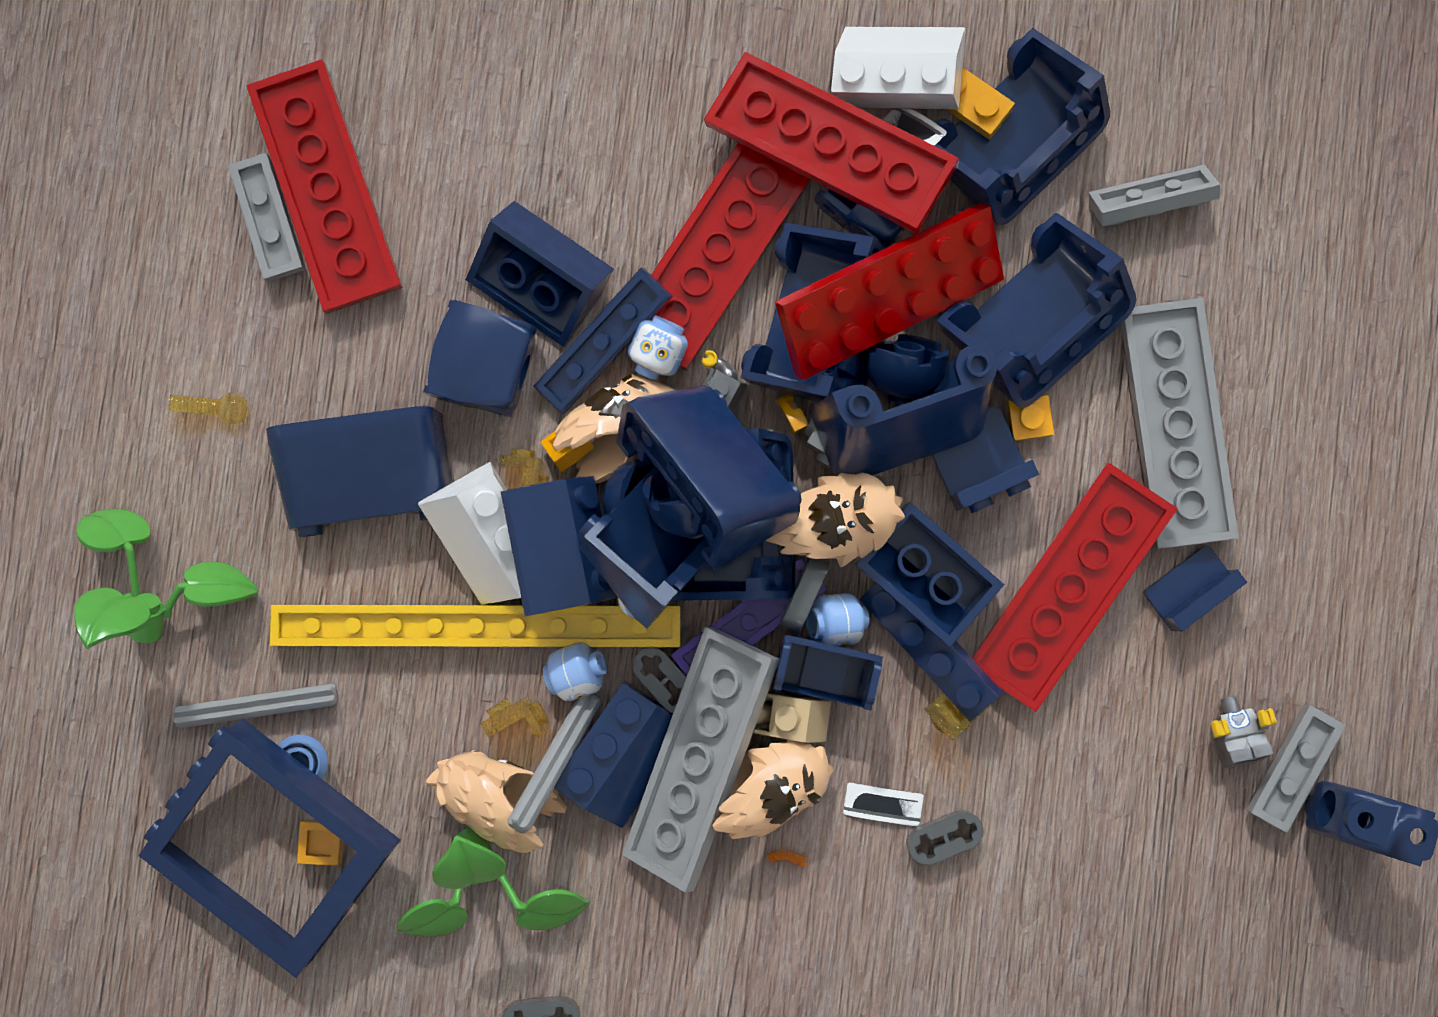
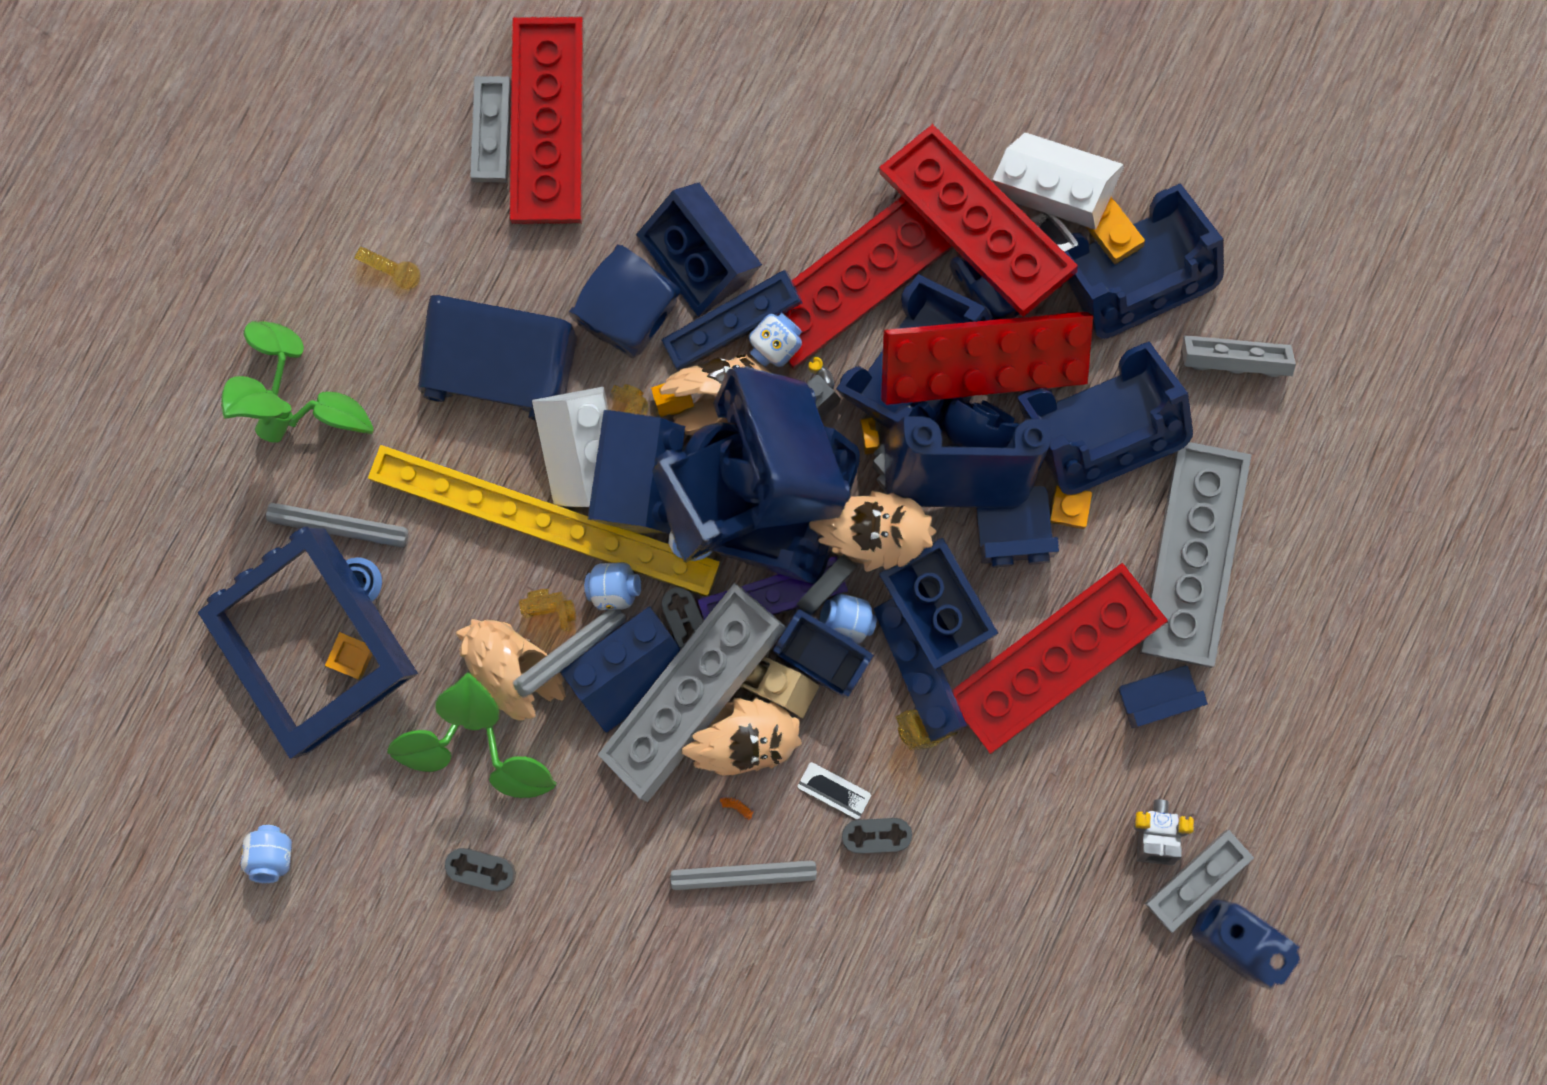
camera: 25 degrees right, 5 degrees down
(819, 927) = (743, 875): none -> light grey axle

